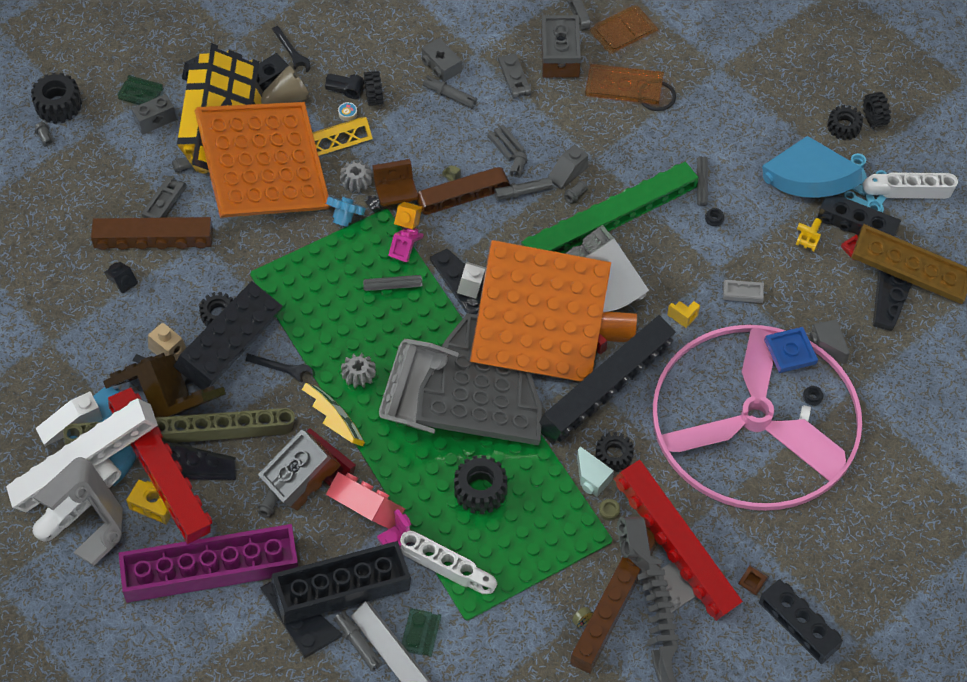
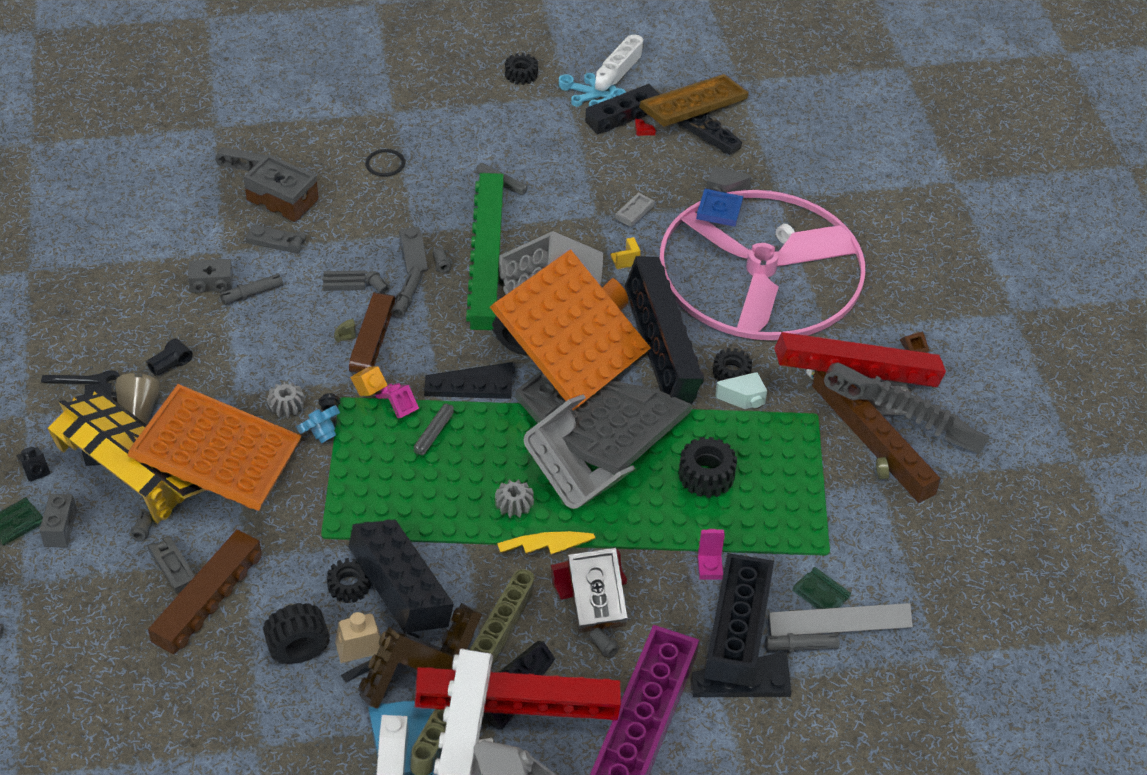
camera: 60 degrees left, 10 degrees down
(121, 276) = (233, 642): black bracket -> none
(140, 304) = (296, 633): none -> black tyre
(140, 502) = (546, 729): yellow brick -> none
(295, 370) = (470, 551): black piece -> none
(343, 127) = (224, 375): yellow fence -> none
(347, 111) = (200, 372): tile -> none
(363, 500) = (659, 560): coral wedge -> none
(373, 88) = (199, 335): black tyre -> none
(394, 182) = (321, 376): reddish brown bracket -> none
(441, 554) = (770, 531): white piece -> none
(471, 280) = (482, 368): white slope -> none
(609, 509) = (785, 400): olive tile -> none
(623, 29) = (295, 145): clear orange piece -> none
(624, 83) = (355, 174): clear orange tile -> none
(714, 212) = (545, 189): black plate -> none
(809, 235) = (616, 145): yellow arm -> none
(811, 171) = (558, 106): dark azure brick -> none
(813, 390) = (768, 221): black plate -> none
(819, 648) = (975, 333): black brick -> none
(876, 109) = (533, 35): black tyre -> none

